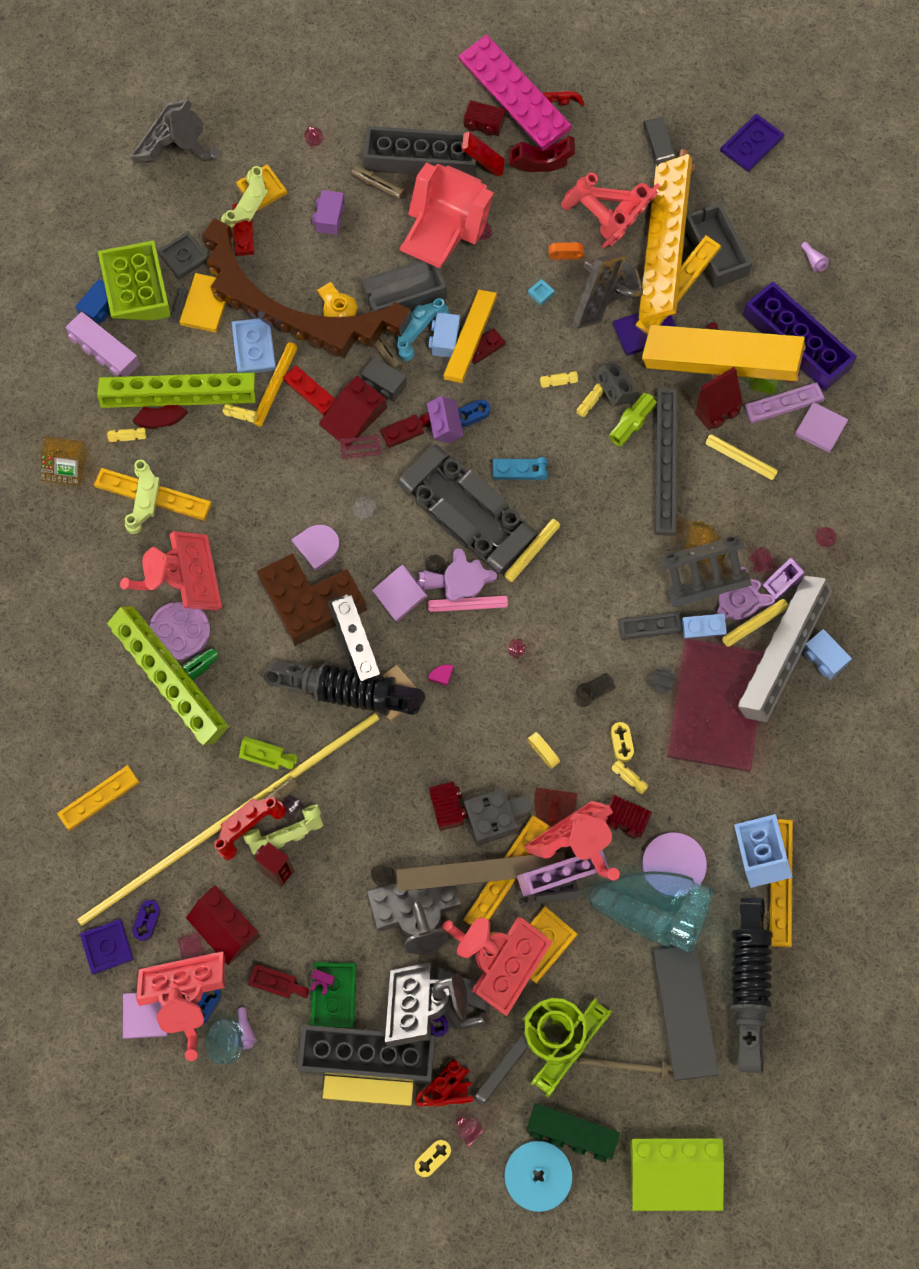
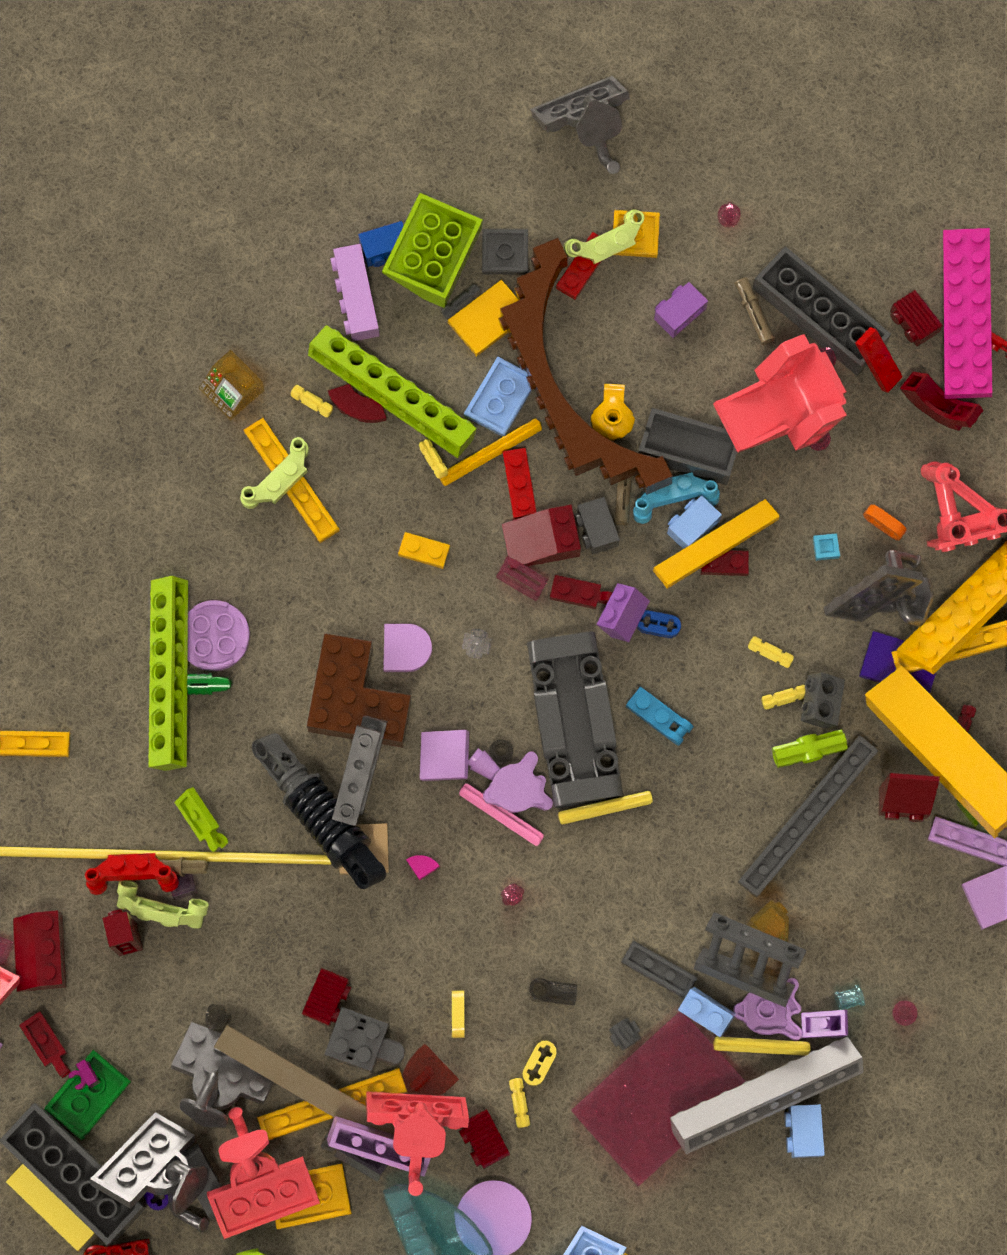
camera: 35 degrees right, 5 degrees up
(184, 567) = (267, 582): coral plate -> none
(280, 475) = (424, 550): none -> yellow plate
(741, 456) = (888, 868): light yellow axle -> none
(765, 560) = (823, 990): clear pink tile -> none
(785, 552) = (849, 998): none -> clear light blue bush

